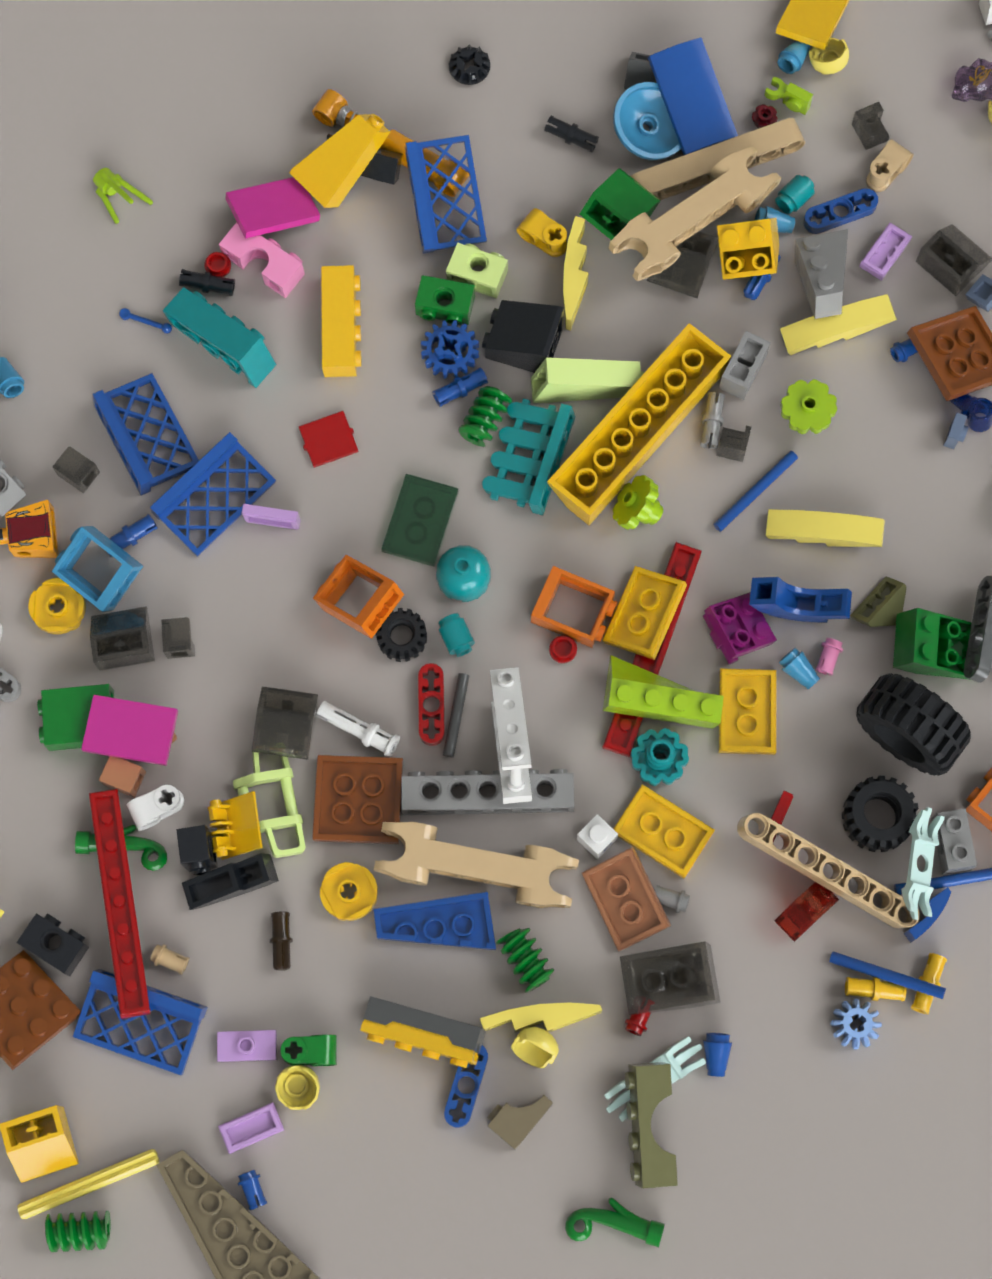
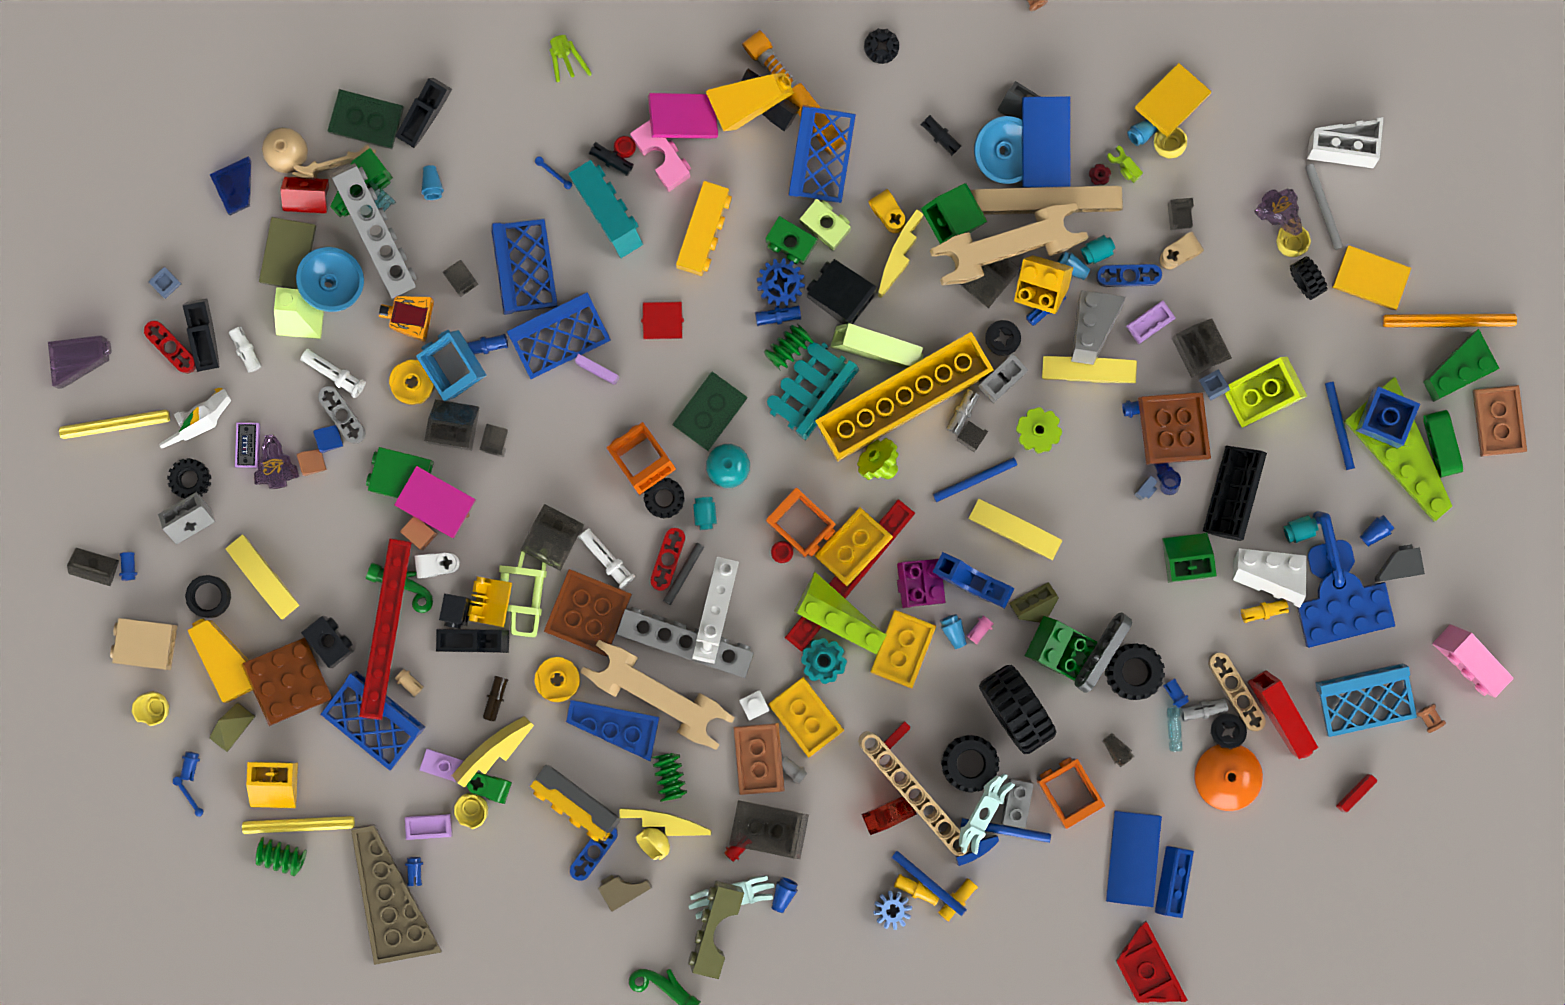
camera: 20 degrees right, 10 degrees up
(305, 994) = (499, 745): none -> light yellow slope
(726, 313) = (1008, 328): none -> black gear

